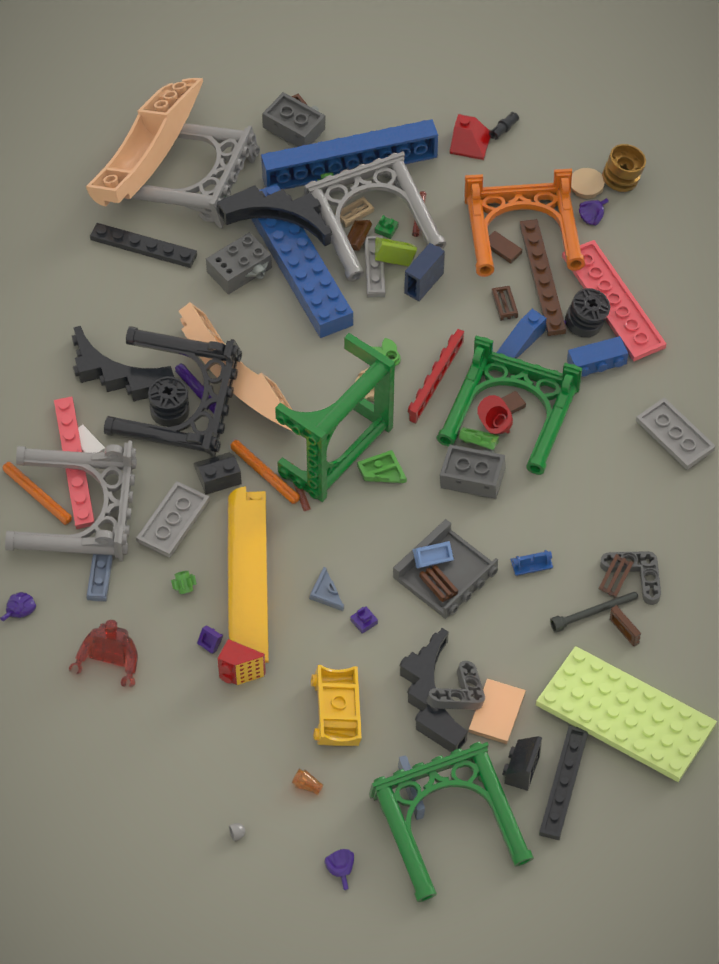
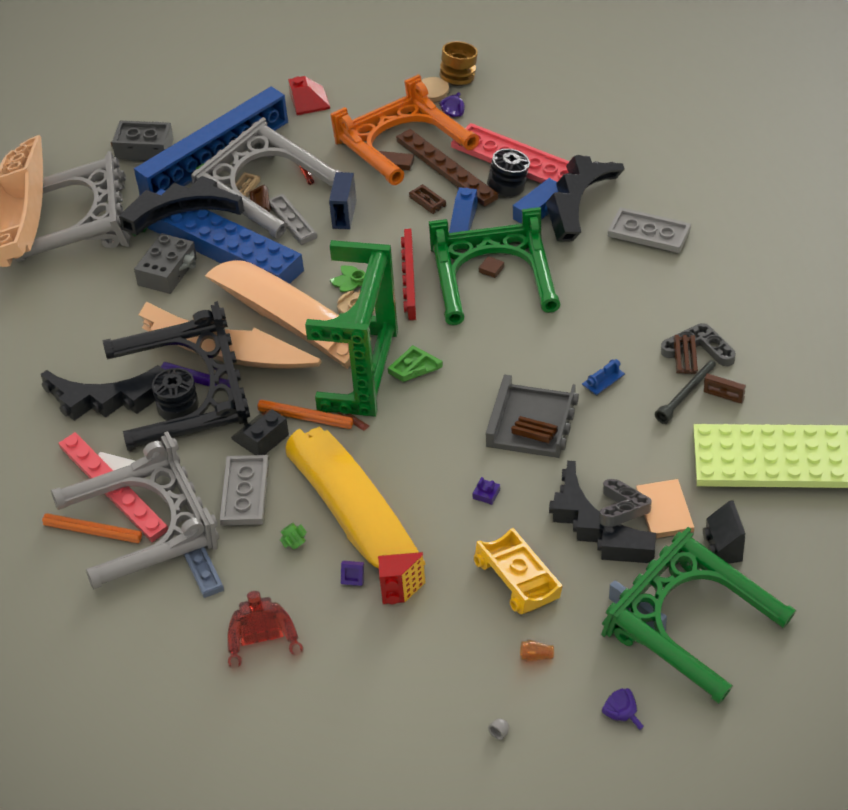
camera: 25 degrees left, 10 degrees down
(19, 606) = (138, 633): dark purple piece -> none
(143, 245) = (62, 288): black plate -> none
(307, 355) = (277, 302): none -> light nougat slope
(326, 592) = (434, 485): sand blue tile -> none
(386, 227) = (281, 186): green tile -> none
(394, 251) = (304, 197): lime slope -> none
(433, 554) = (513, 407): medium blue tile -> none
(473, 471) = (498, 329): dark grey piece -> none
(479, 437) = (491, 302): bright green wing -> none
(495, 415) = (486, 278): red piece -> none
(504, 125) = (331, 77): black pin -> none
(563, 783) = (772, 538): black plate -> none
(611, 374) = (564, 204): none -> black arch

